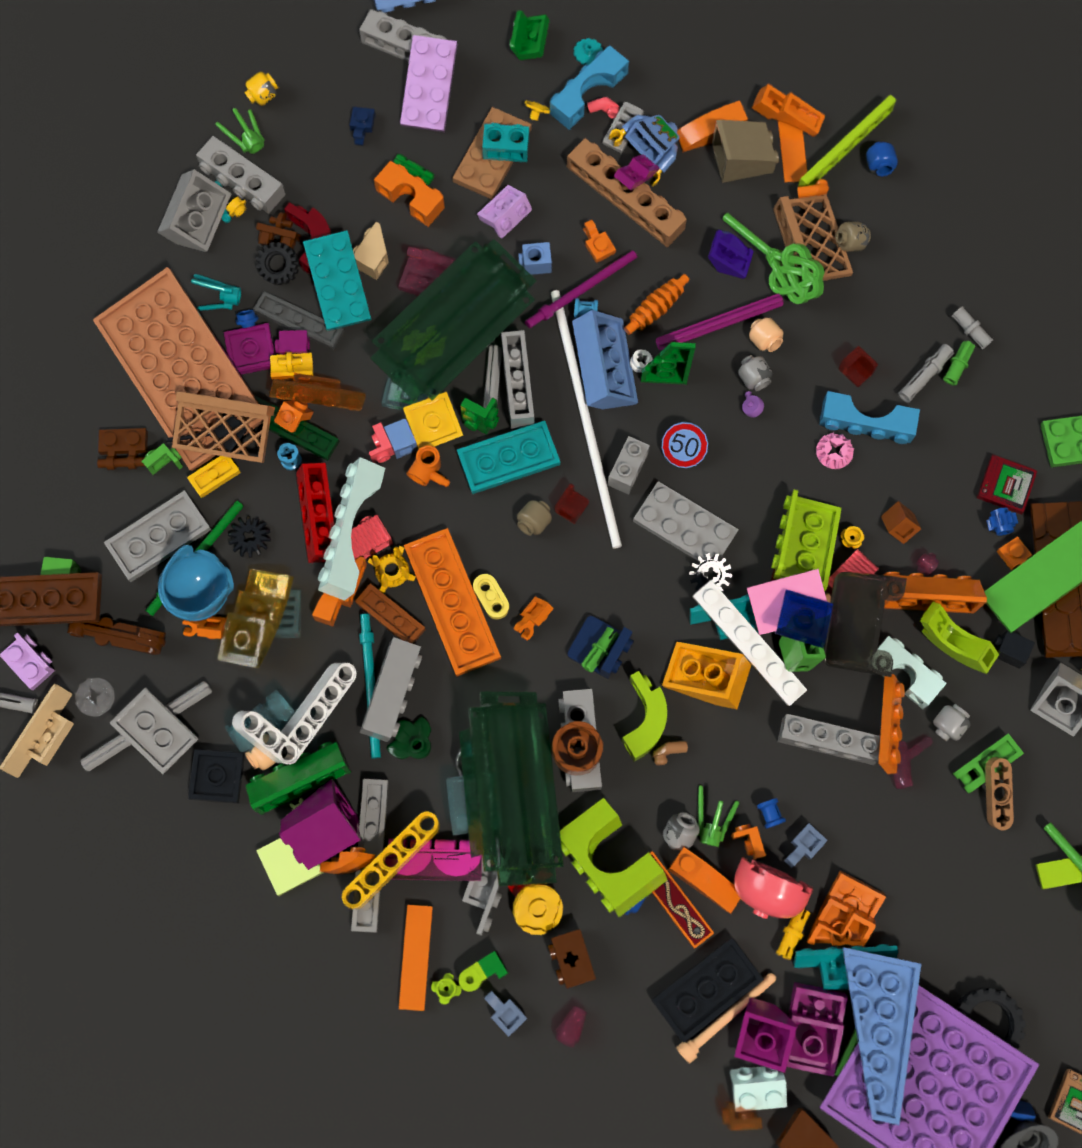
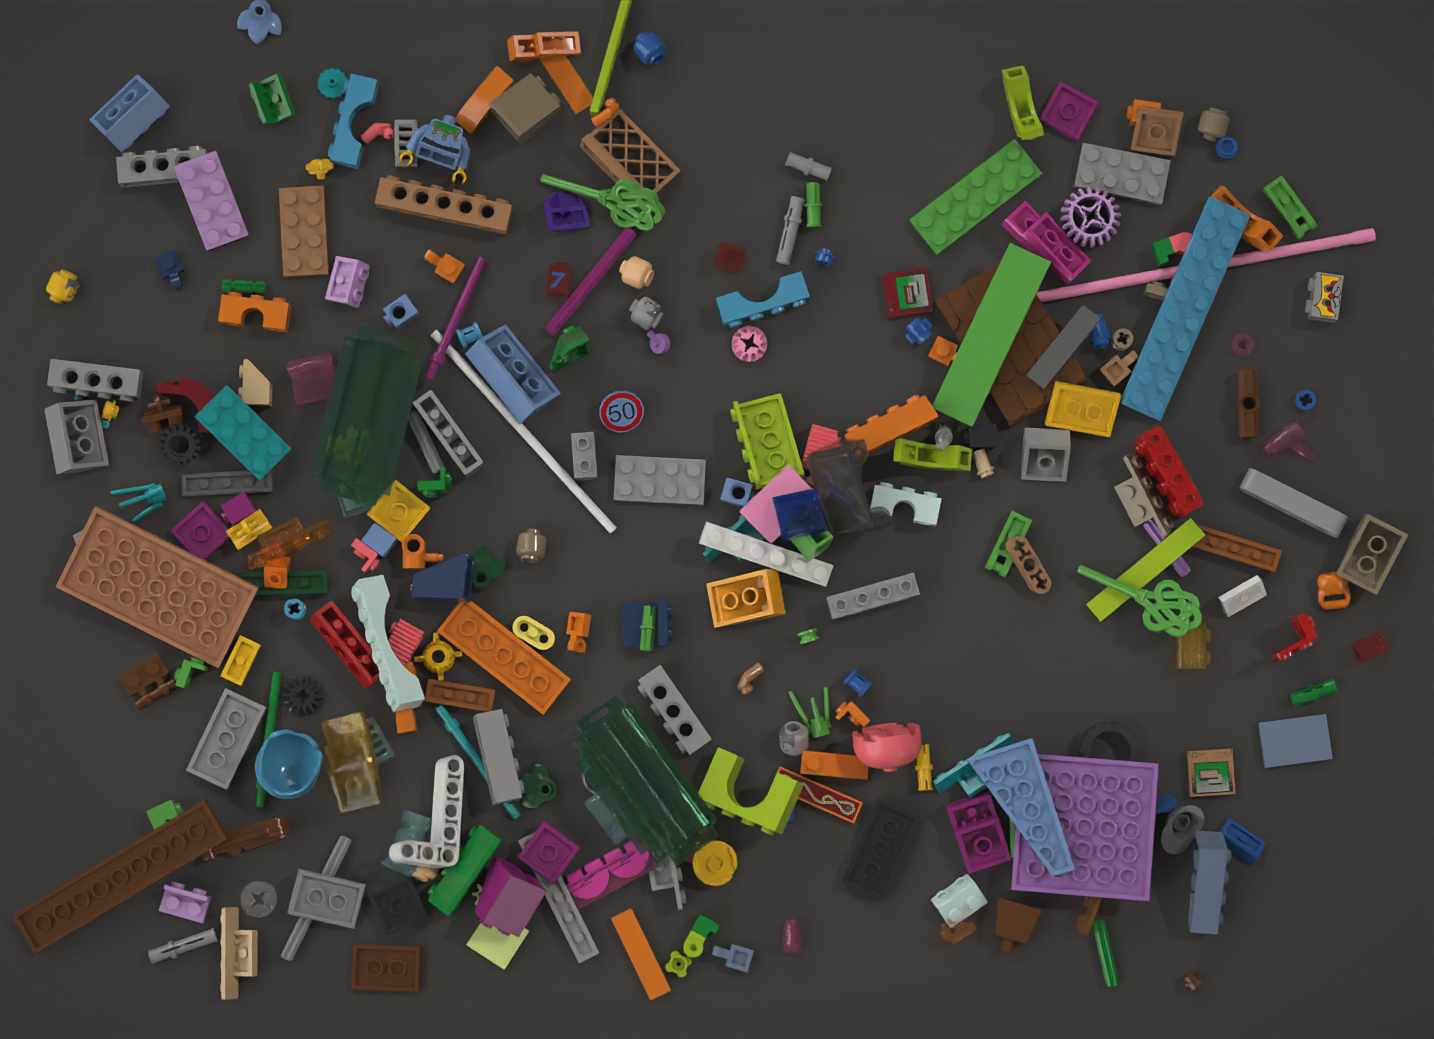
camera: 30 degrees left, 10 degrees up
(169, 829) = (386, 968): none -> reddish brown tile
(210, 628) = (321, 790): orange plate -> none
(220, 406) = (220, 599): medium nougat fence -> none
(221, 432) = (230, 619): black piece -> none
(246, 318) = (182, 508): blue plate -> none
(251, 140) = (84, 340): bright green plant -> none
(348, 861) = (546, 912): orange slope -> none
(378, 864) = (572, 901): yellow beam -> none
(385, 806) = (548, 852): none -> magenta tile
(438, 504) = (445, 581): none -> dark blue slope
(480, 511) = (487, 566): none -> dark green plate
(505, 148) = (316, 226): teal brick -> none
(508, 457) = (479, 505): teal plate -> none
(567, 737) = (683, 711): dark orange brick -> none
(571, 504) = (556, 516): clear red panel -> none
(573, 943) = (776, 889): reddish brown brick -> none
(636, 172) = (444, 186): magenta slope -> none
(642, 355) = (540, 349): white bush -> none
(647, 735) = (725, 673): lime arch -> none
(656, 304) = (528, 296): orange piece -> none
(690, 1048) = (891, 900): light nougat piece -> none
(692, 305) = (559, 279): none -> clear red brick
(704, 566) = (708, 503): gear -> none
(747, 742) = (808, 636): none -> bright green bush
(750, 563) = (730, 485): none -> medium blue brick
(766, 1035) = (942, 858): magenta slope -> none
(807, 843) = (898, 690): sand blue plate -> none
(847, 913) = (957, 727): orange slope -> none
(852, 531) = (807, 408): yellow plate -> none
(853, 236) = (663, 138): dark tan head -> none
(890, 724) = (914, 558): orange plate -> none
(901, 522) = (836, 378): dark orange panel -> none
(903, 776) = (936, 578): clear pink piece -> none
(927, 563) = (876, 402): clear pink plate -> none
(945, 412) = (824, 257): none -> blue plate
(952, 722) = (962, 527): light grey head -> none
(978, 627) = (943, 436): none -> light grey axle
(1000, 675) = (982, 463): none -> tan pin

